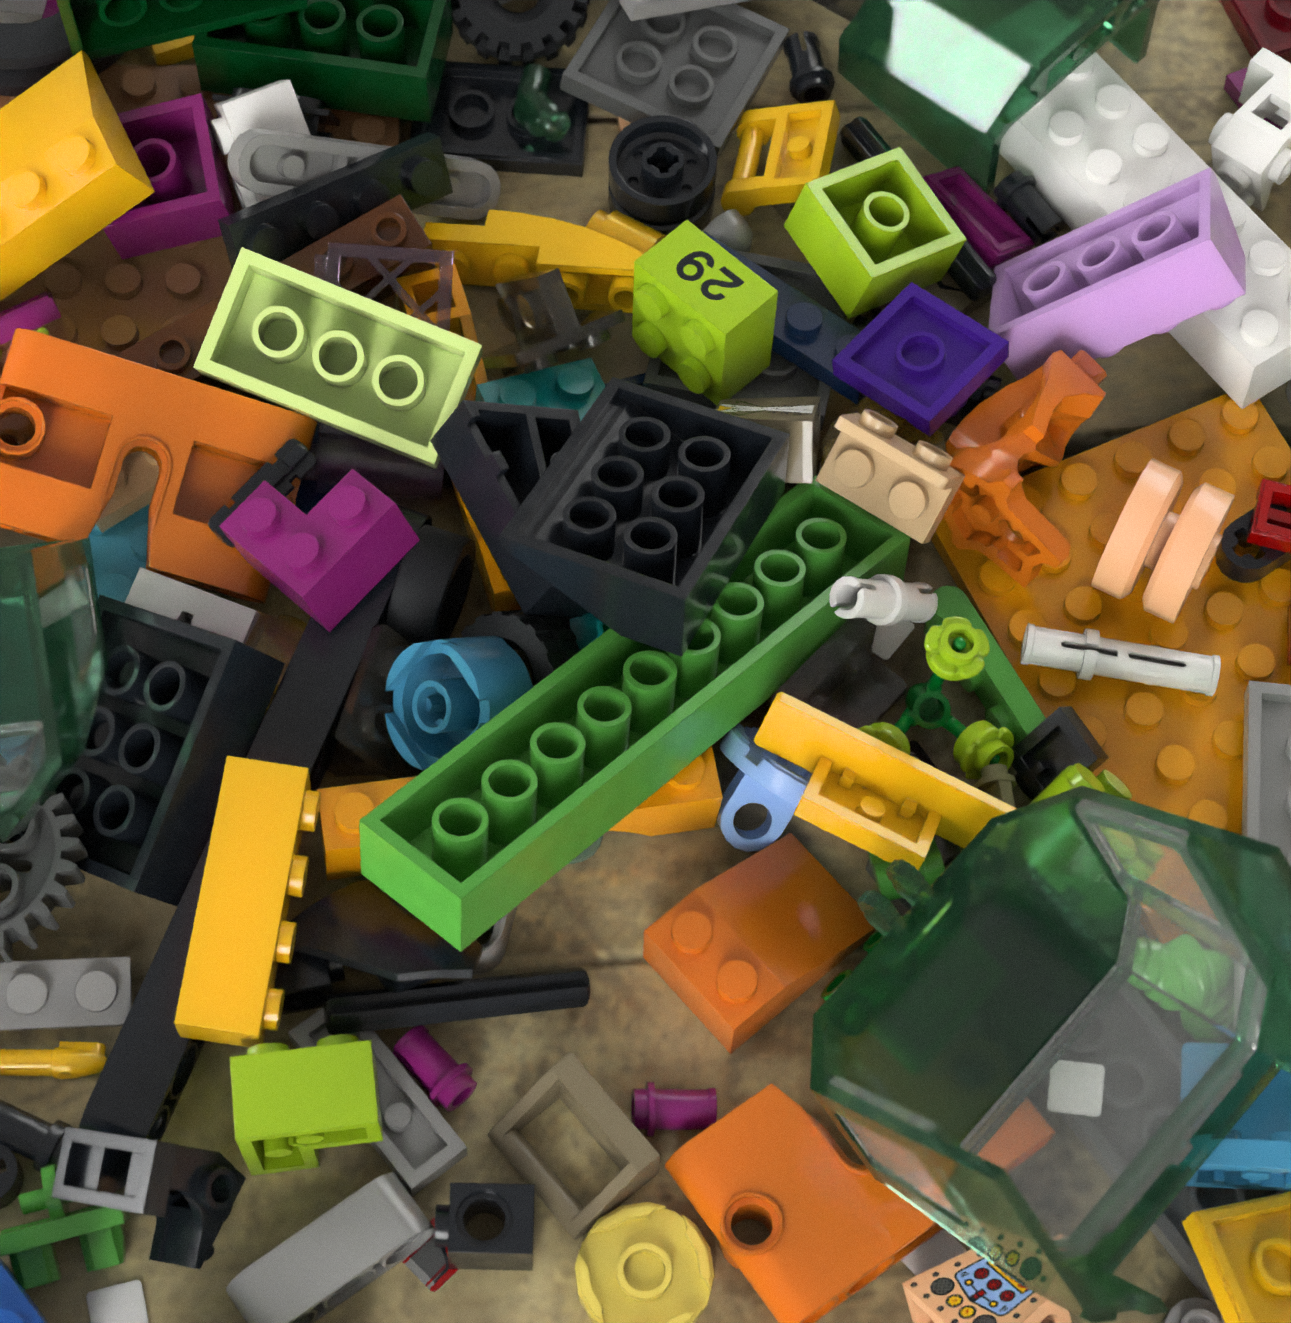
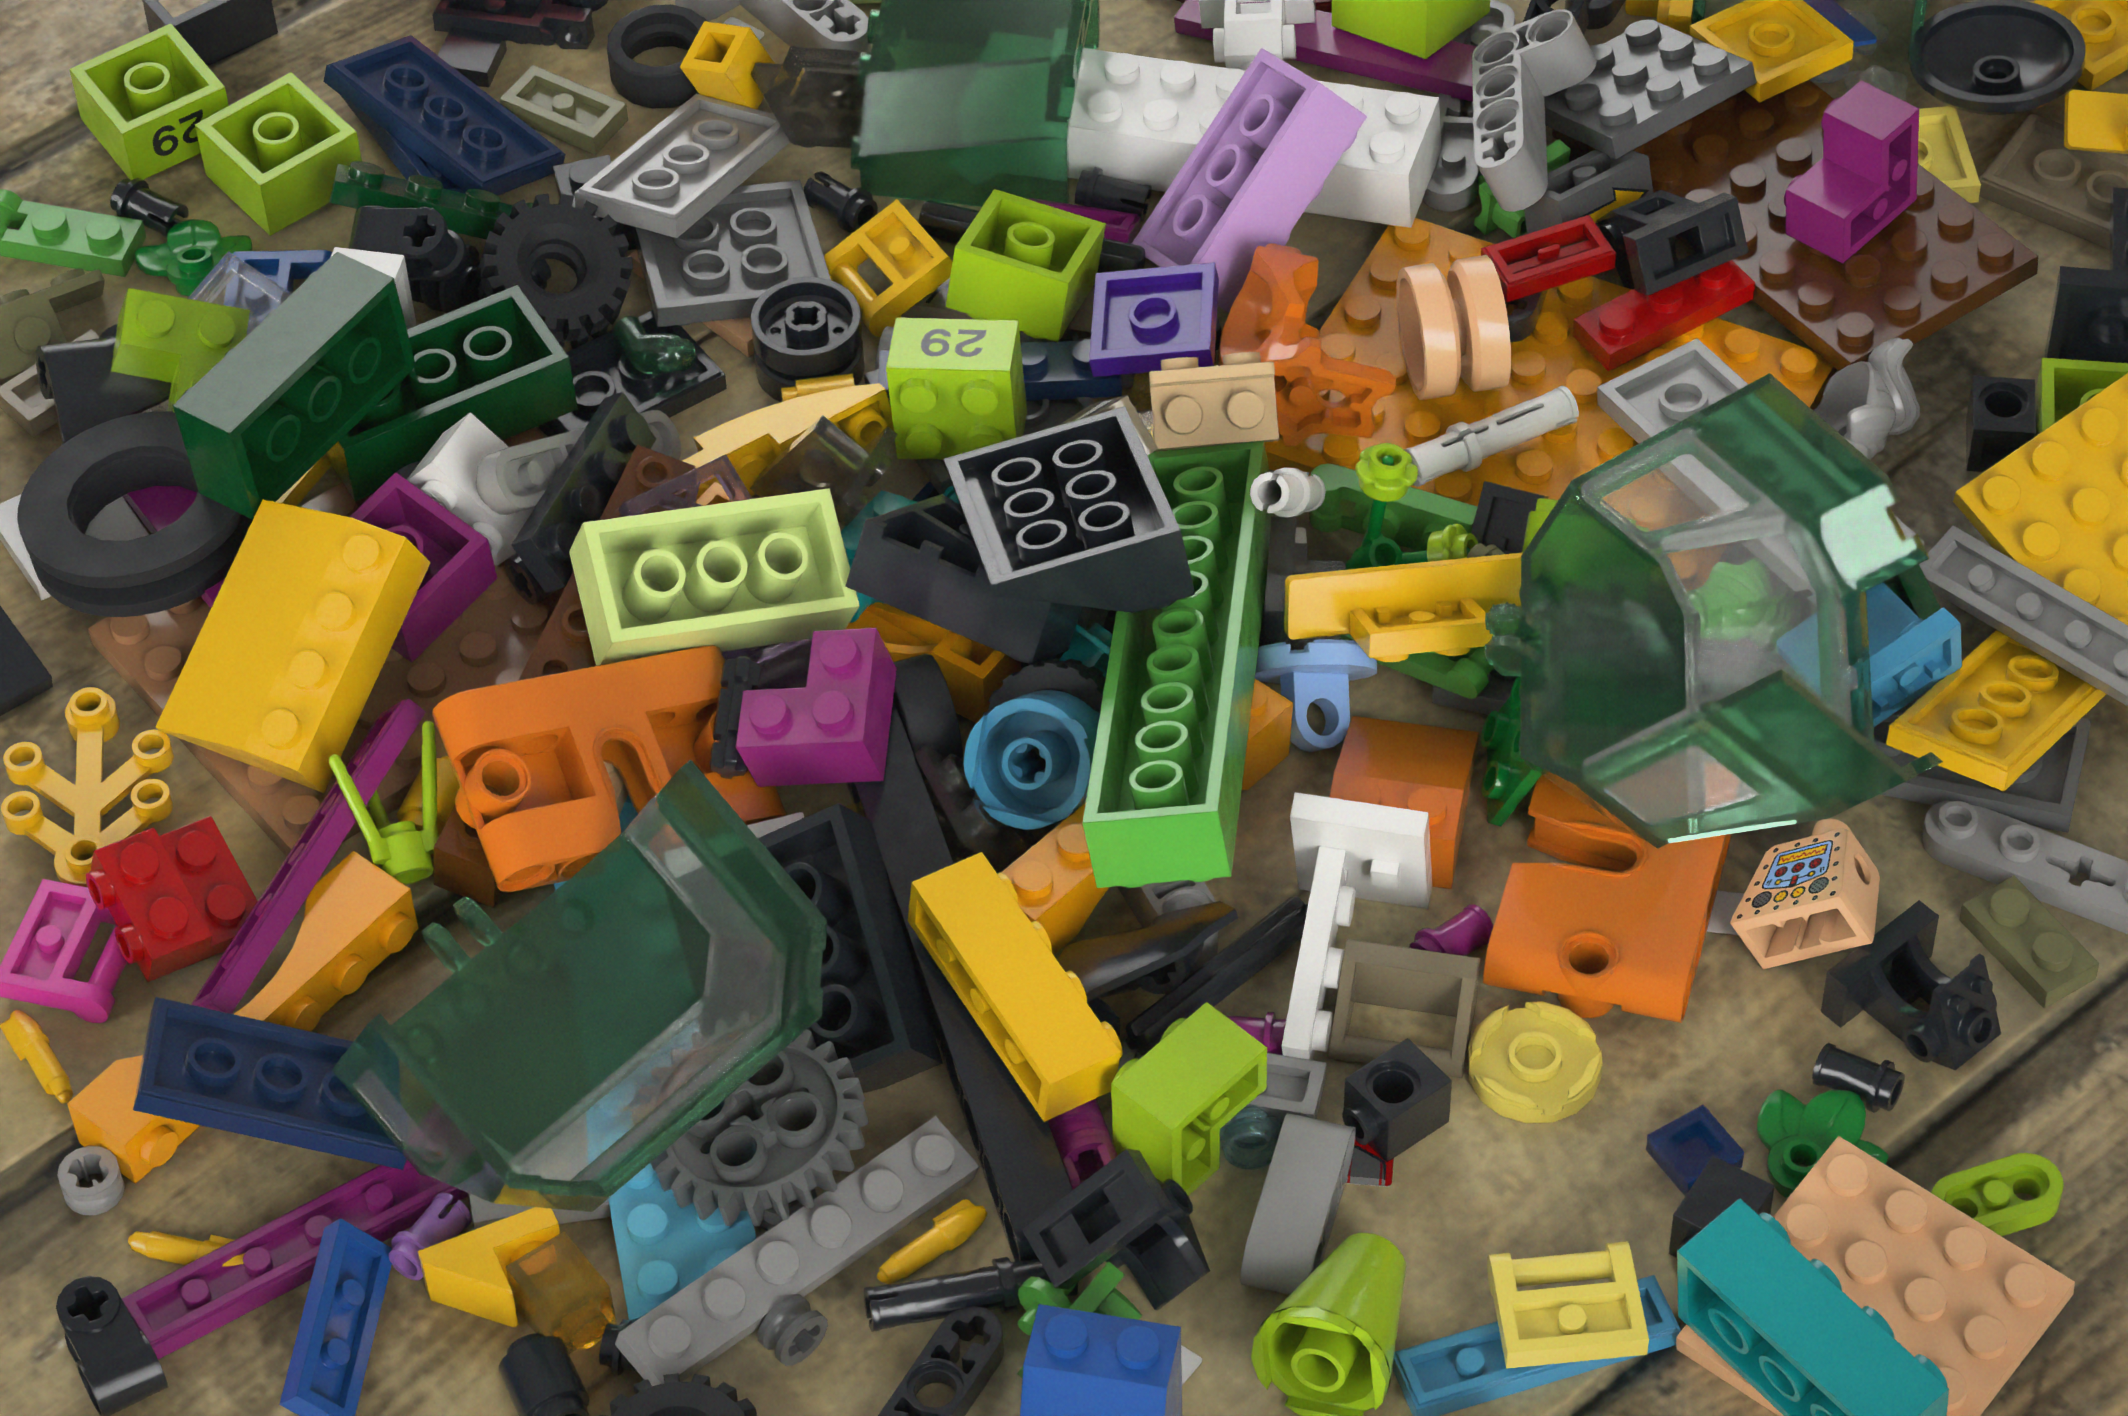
camera: 35 degrees left, 15 degrees down
(208, 1072) = (1082, 1141): none -> magenta hinge
(353, 1165) = (1250, 1138): none -> clear light blue plate
(577, 1013) = (1344, 855): none -> white piece

